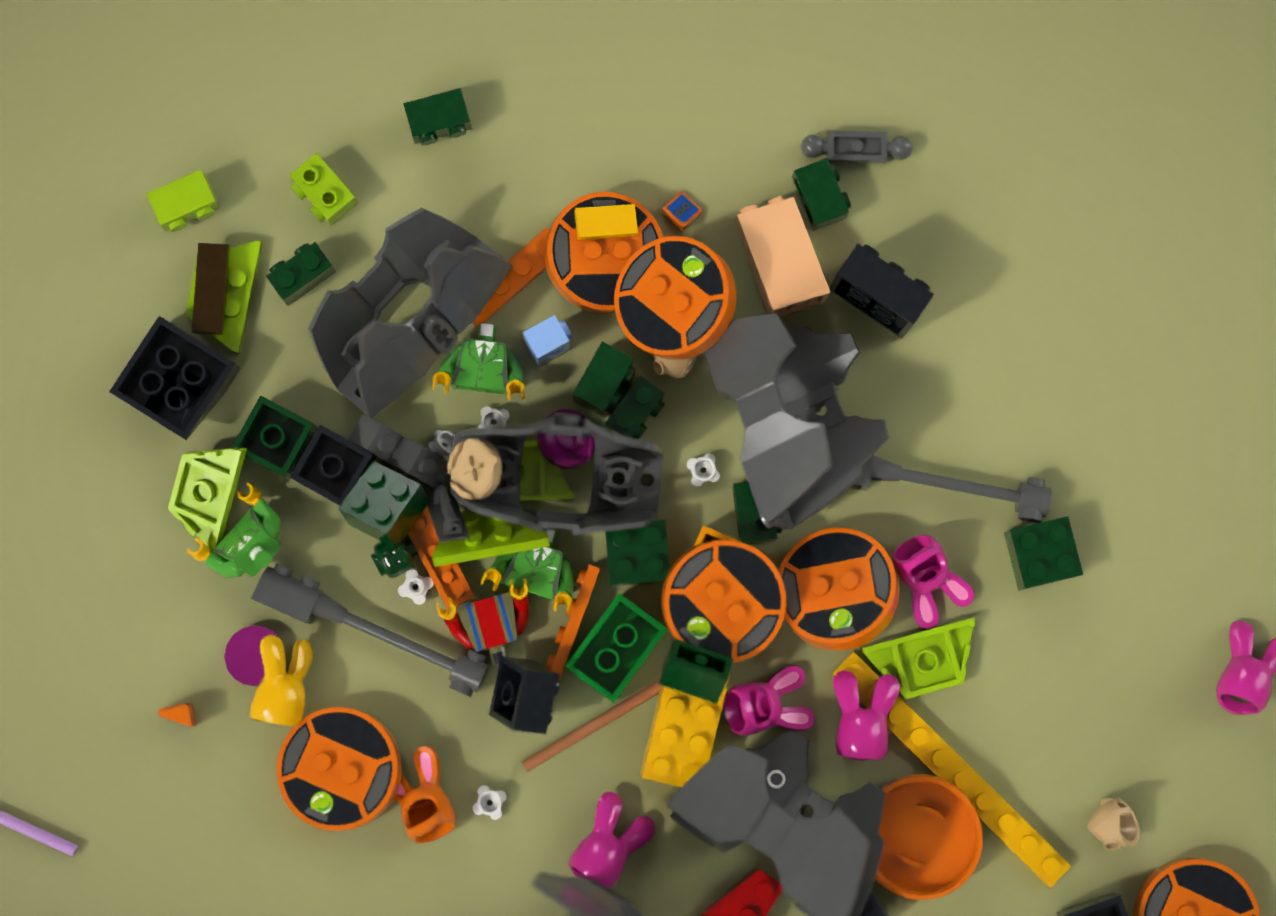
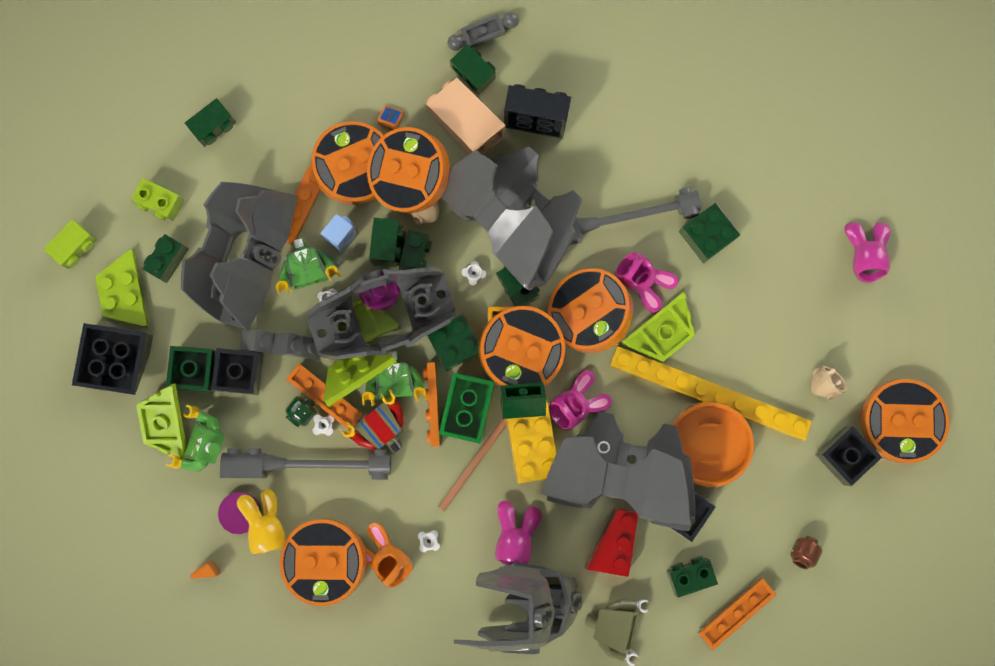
camera: 15 degrees left, 0 degrees up
(210, 288) = (111, 292): dark brown tile -> none
(384, 504) = (279, 381): dark green brick -> none
(442, 444) = (302, 327): white plate -> none
(446, 515) = (322, 371): dark grey hinge -> none
(474, 468) = (326, 332): tan tile -> none
(524, 695) = (421, 463): black brick -> none
(606, 221) = (344, 142): yellow tile -> none
(863, 731) = (643, 393): dark pink piece -> none

